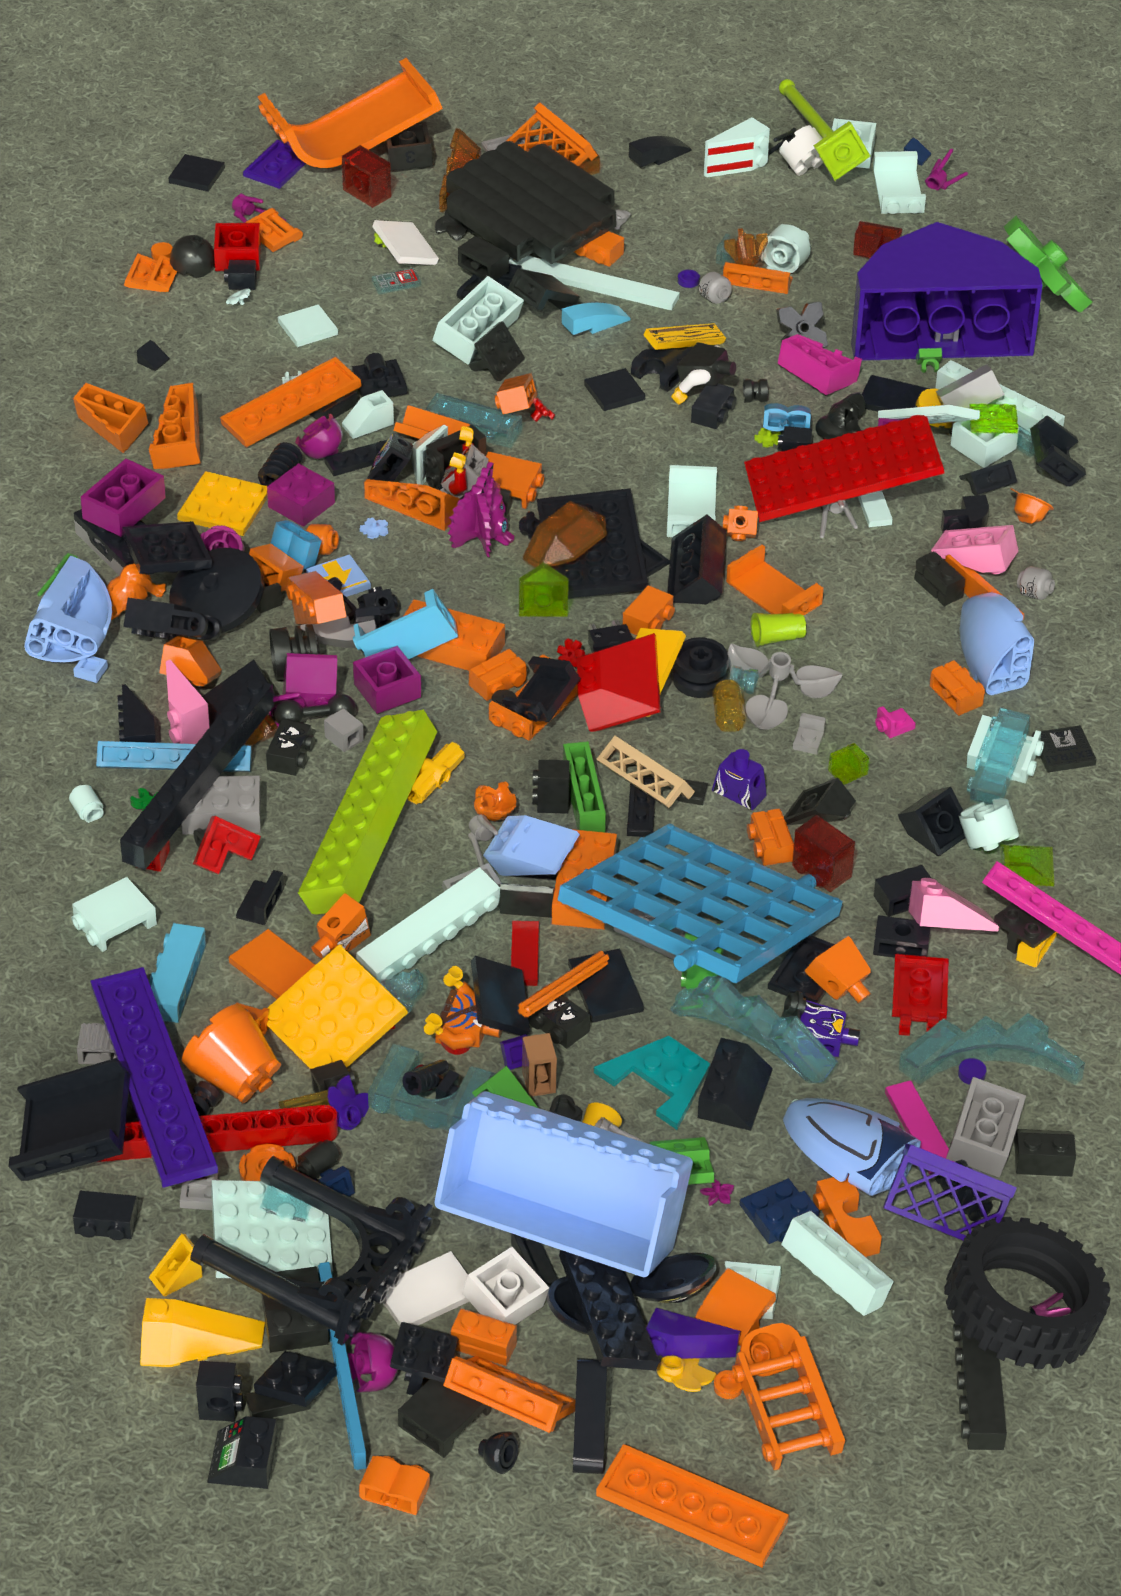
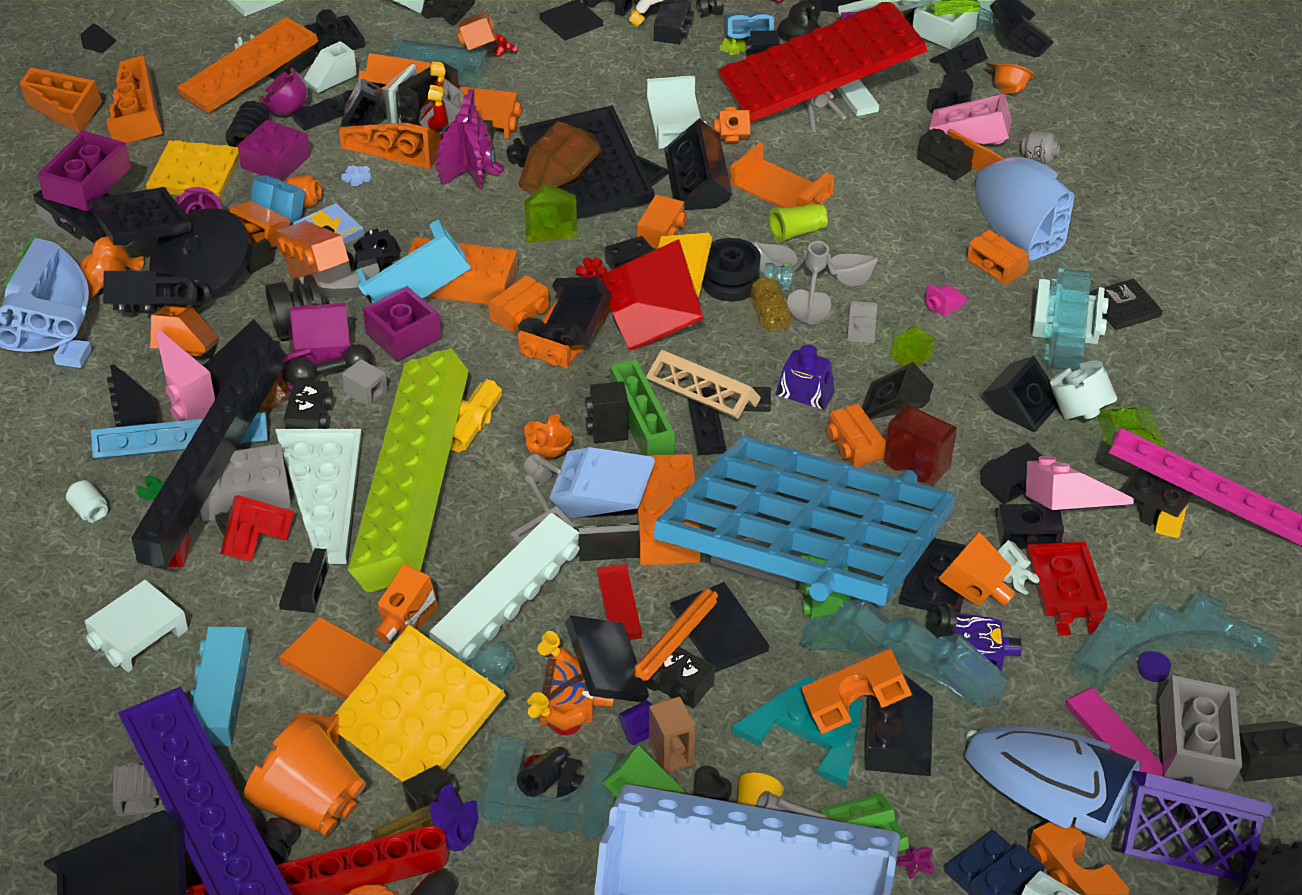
camera: 10 degrees left, 0 degrees up
(292, 812) = (324, 481): none -> light aqua wing
(680, 1052) = (875, 676): none -> orange arch
(879, 968) = (1018, 564): none -> light aqua plate

